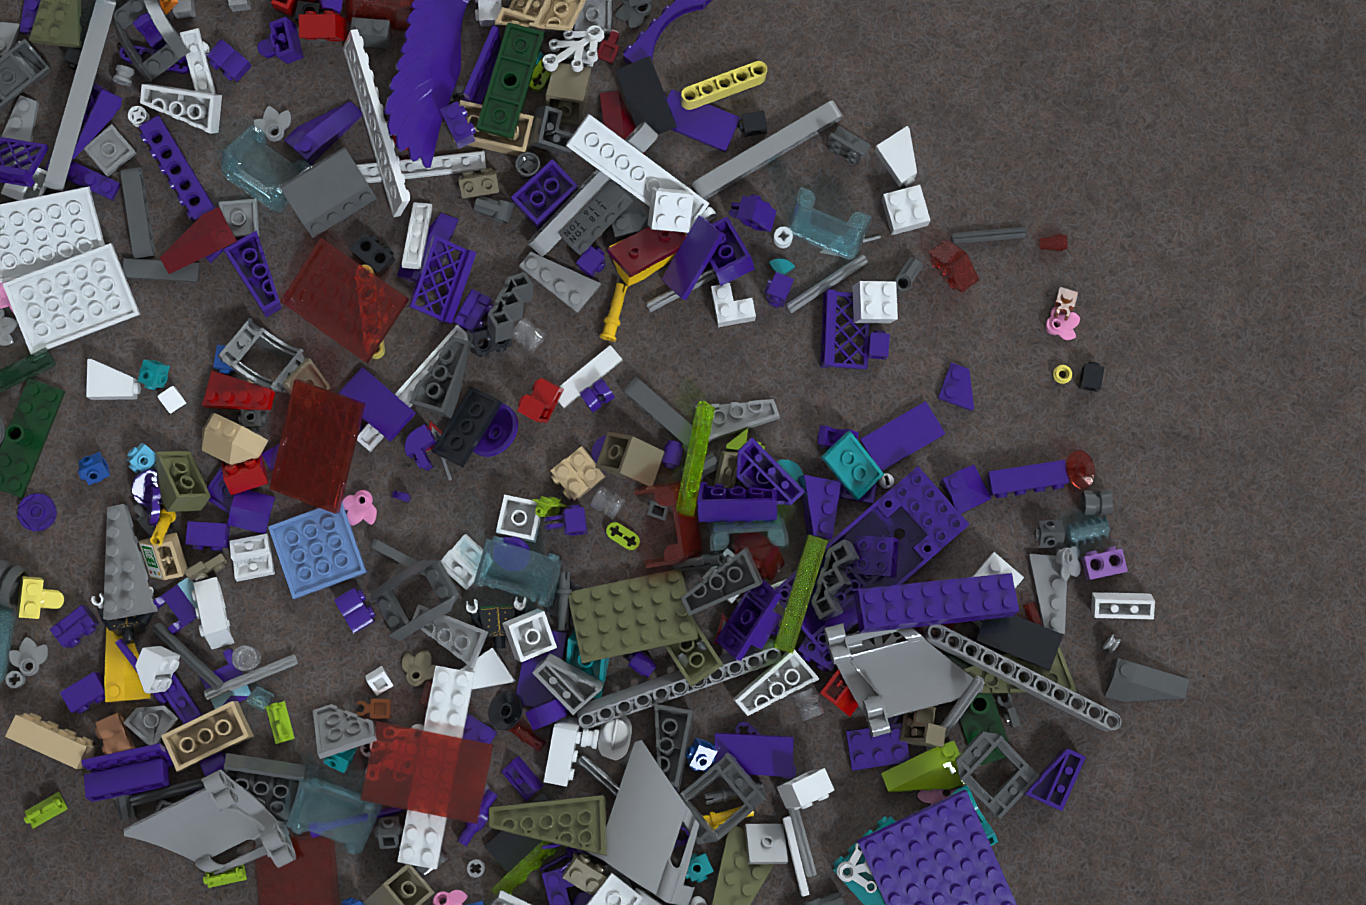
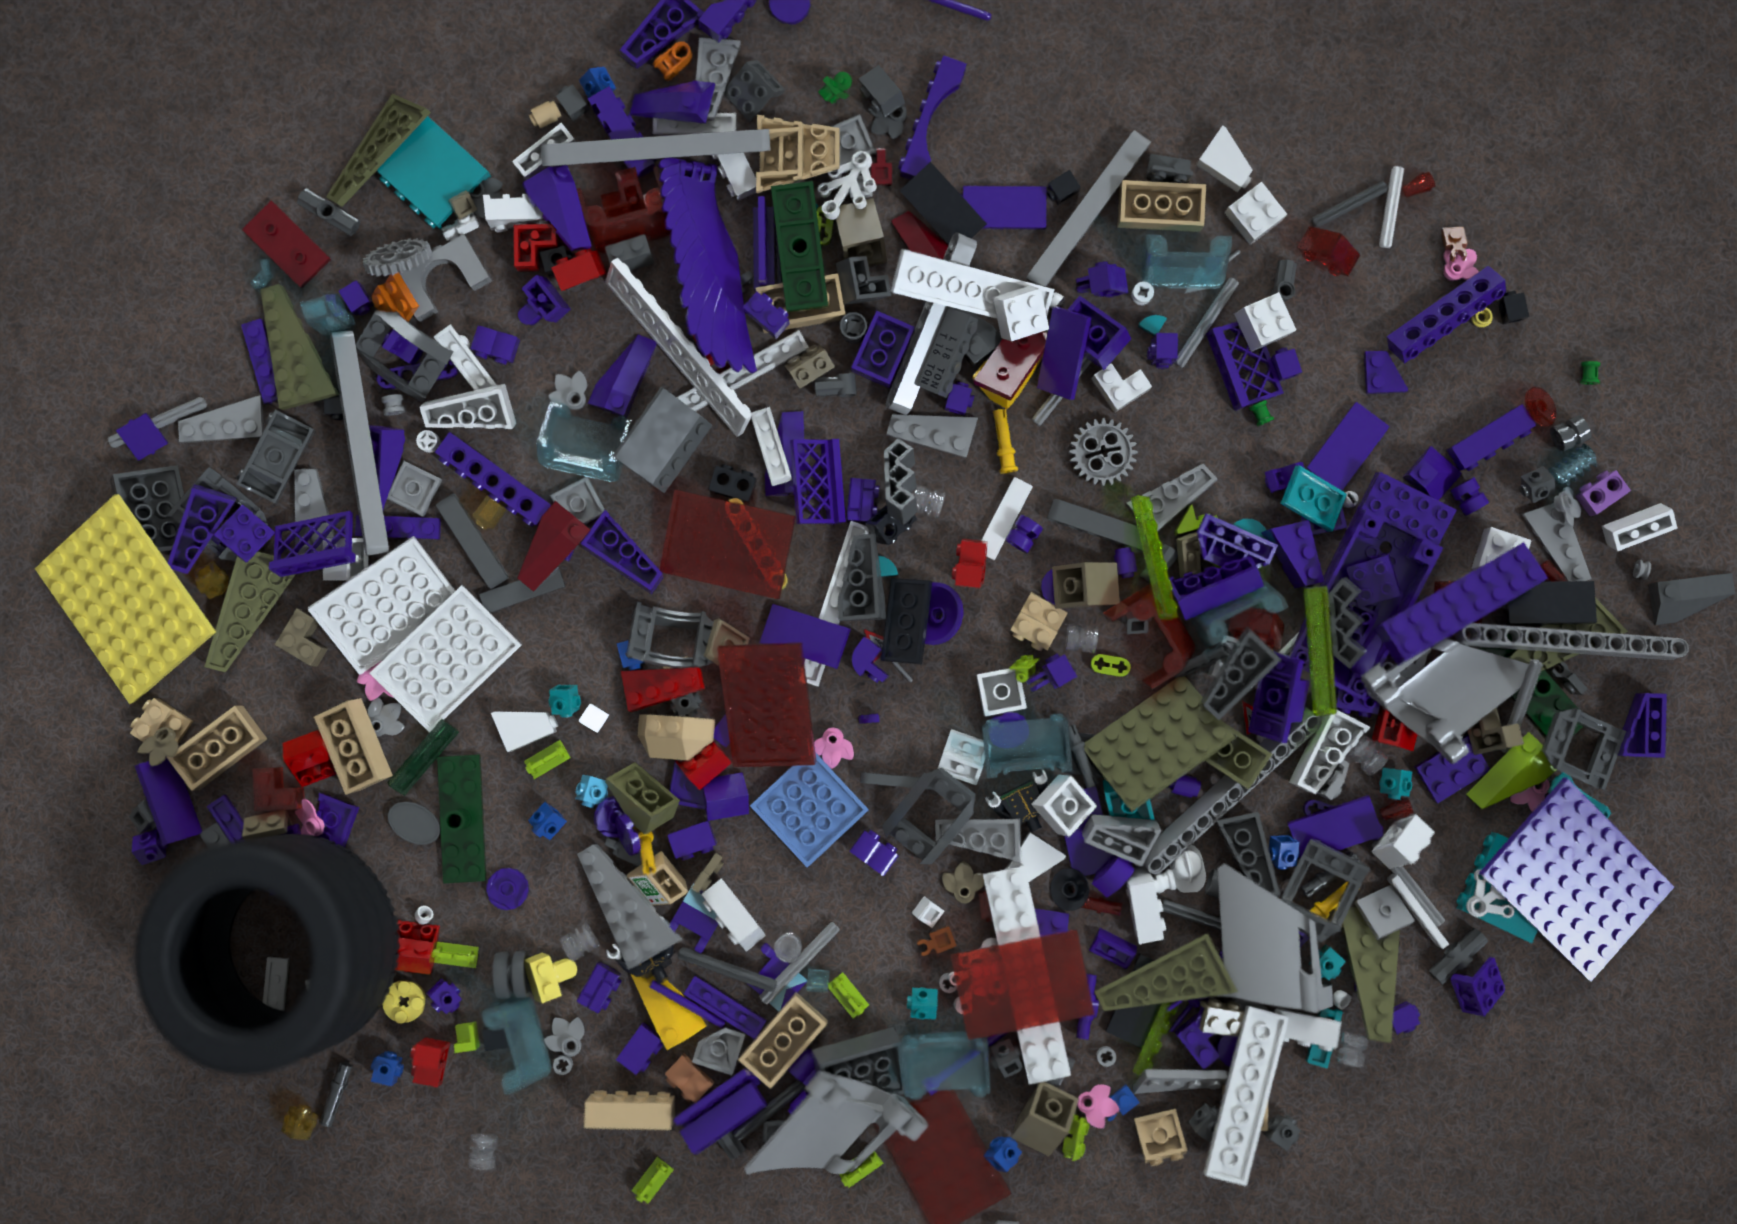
camera: 20 degrees left, 5 degrees up
(71, 581) = (580, 941): none -> clear wheel
(117, 418) = (546, 759): none -> lime hinge
(156, 668) = (704, 995): white slope -> none
(161, 195) = (489, 513): none -> clear yellow brick
(252, 557) = (746, 843): white slope -> none
(340, 730) = (916, 979): light grey plate -> none
(470, 376) = (887, 567): none -> teal tile
(695, 338) = (1097, 434): none -> light grey gear
(728, 78) = (1021, 152): light yellow beam -> none
(764, 715) = (1334, 782): none -> light grey plate
(815, 761) = (1397, 809): none -> clear red cone
(822, 737) = (1395, 783): none -> teal brick
(828, 171) = (1161, 206): none -> tan brick
(840, 377) = (1261, 413): none -> green bush
(988, 519) = (1473, 503): none -> dark purple wheel
(1023, 251) = (1391, 207): none -> white axle
(1031, 359) = (1446, 314): none -> dark purple brick
(1135, 458) = (1590, 373): none -> green bush

